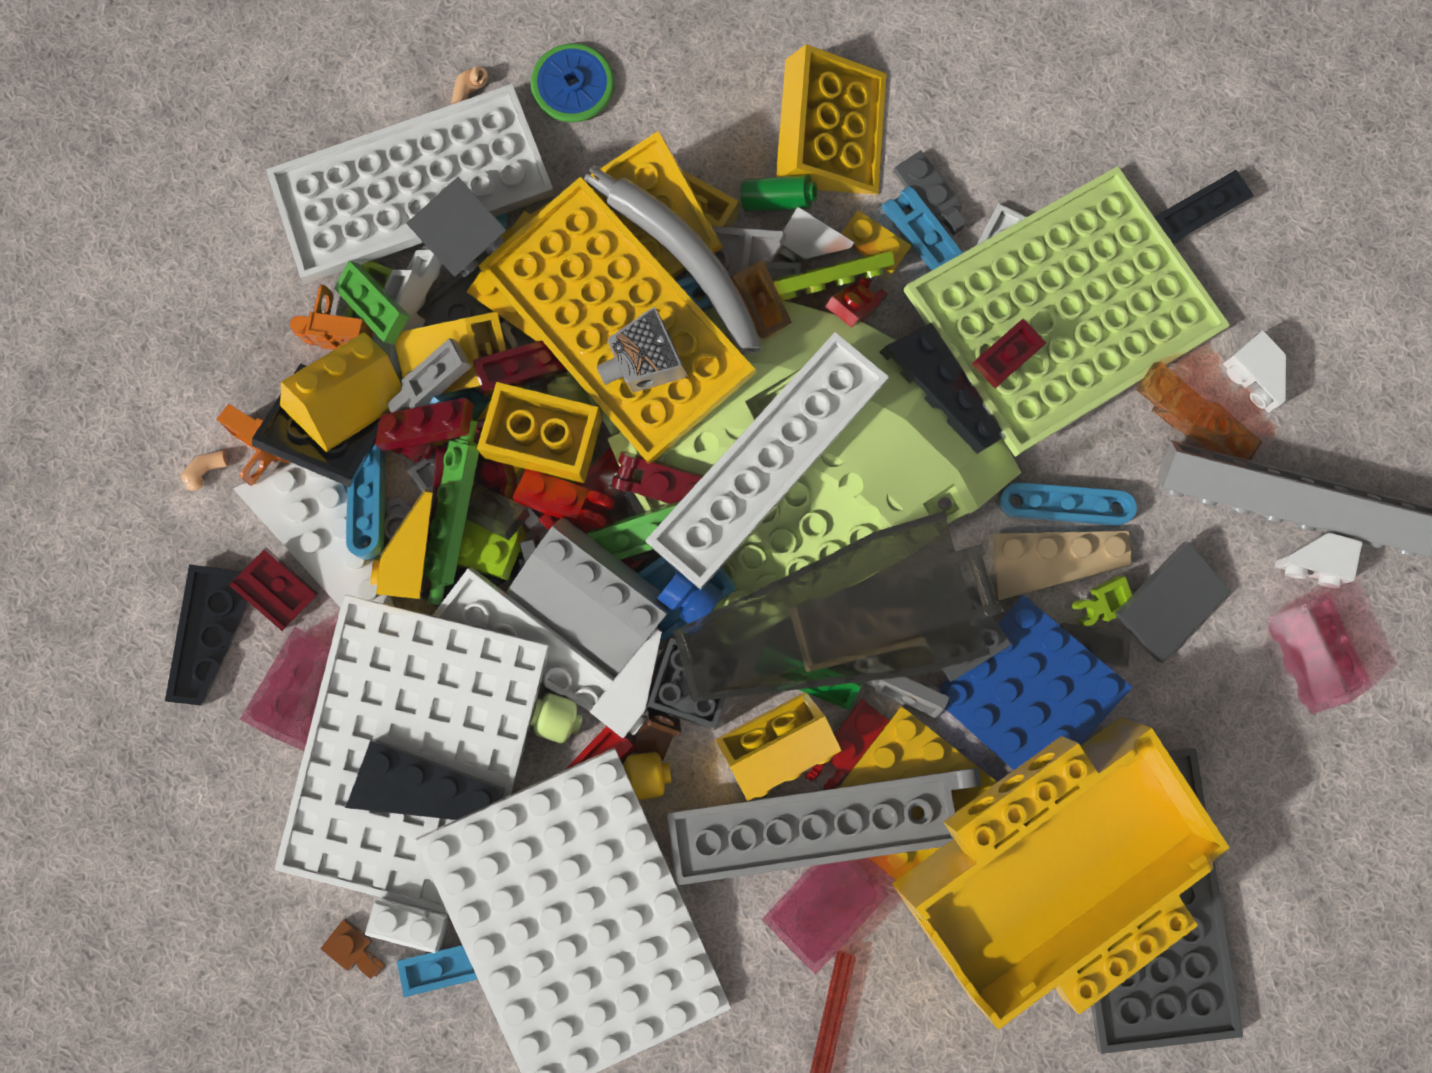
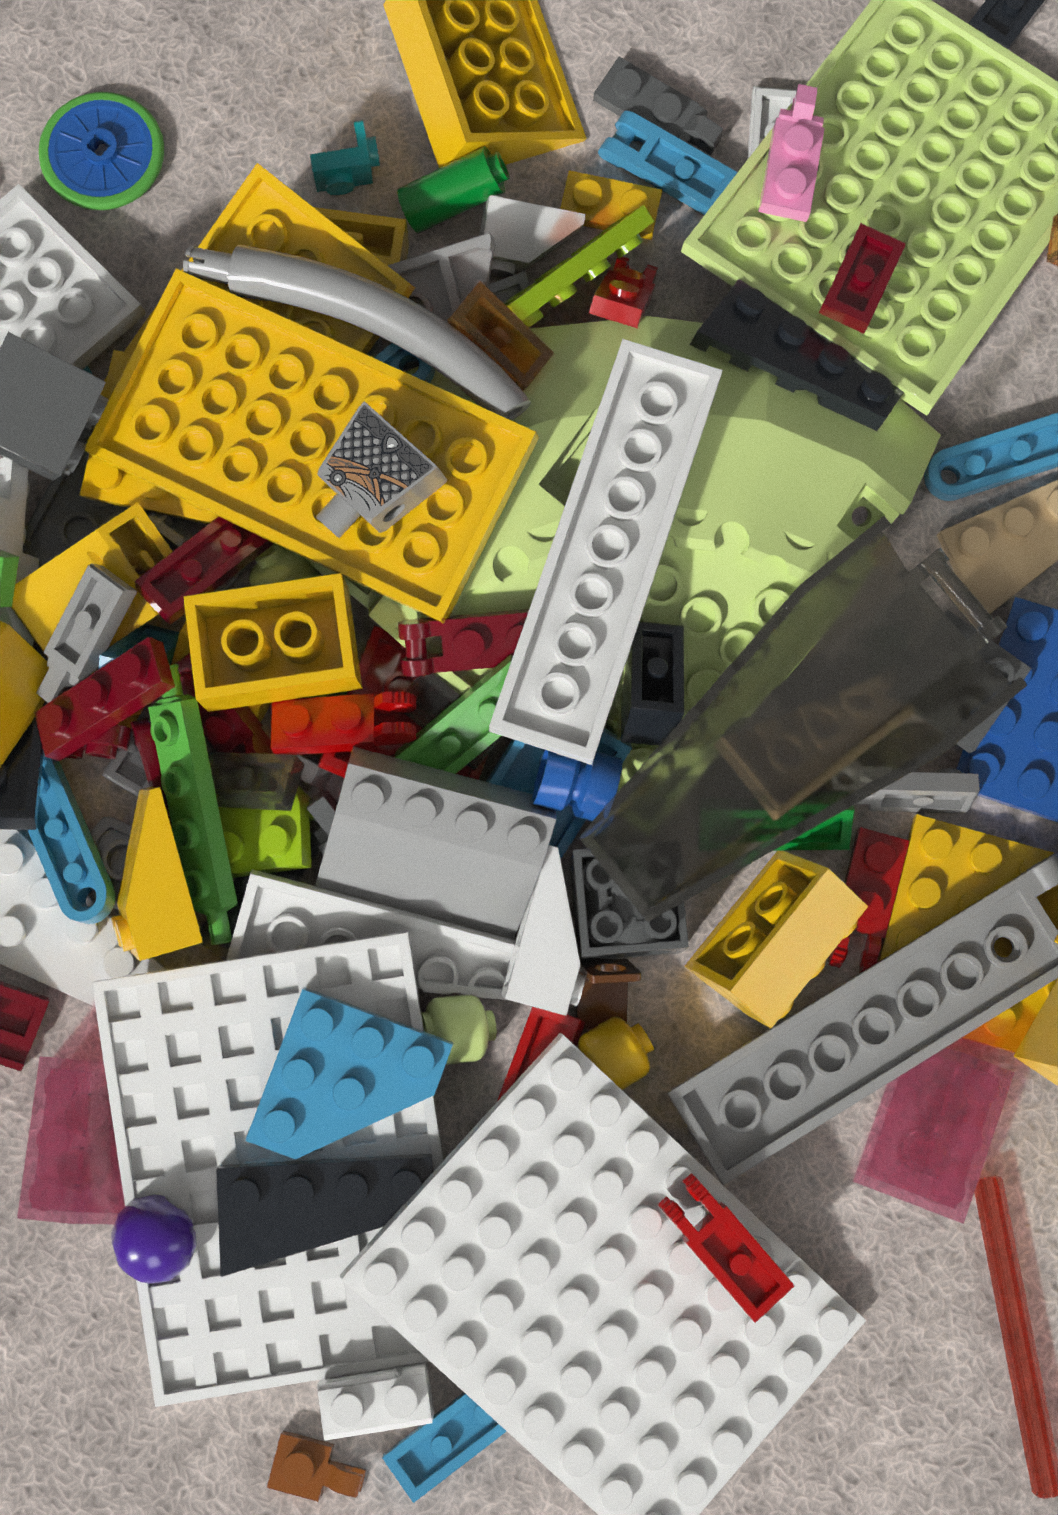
camera: 25 degrees left, 0 degrees up
(314, 767) = (153, 1239): none -> dark purple hair
(470, 716) = (342, 1074): none -> dark azure plate
(660, 928) = (730, 1252): none -> red hinge
(719, 154) = (344, 169): none -> teal bracket
(764, 554) = (653, 684): none -> black slope
(999, 260) = (793, 159): none -> bright pink hinge

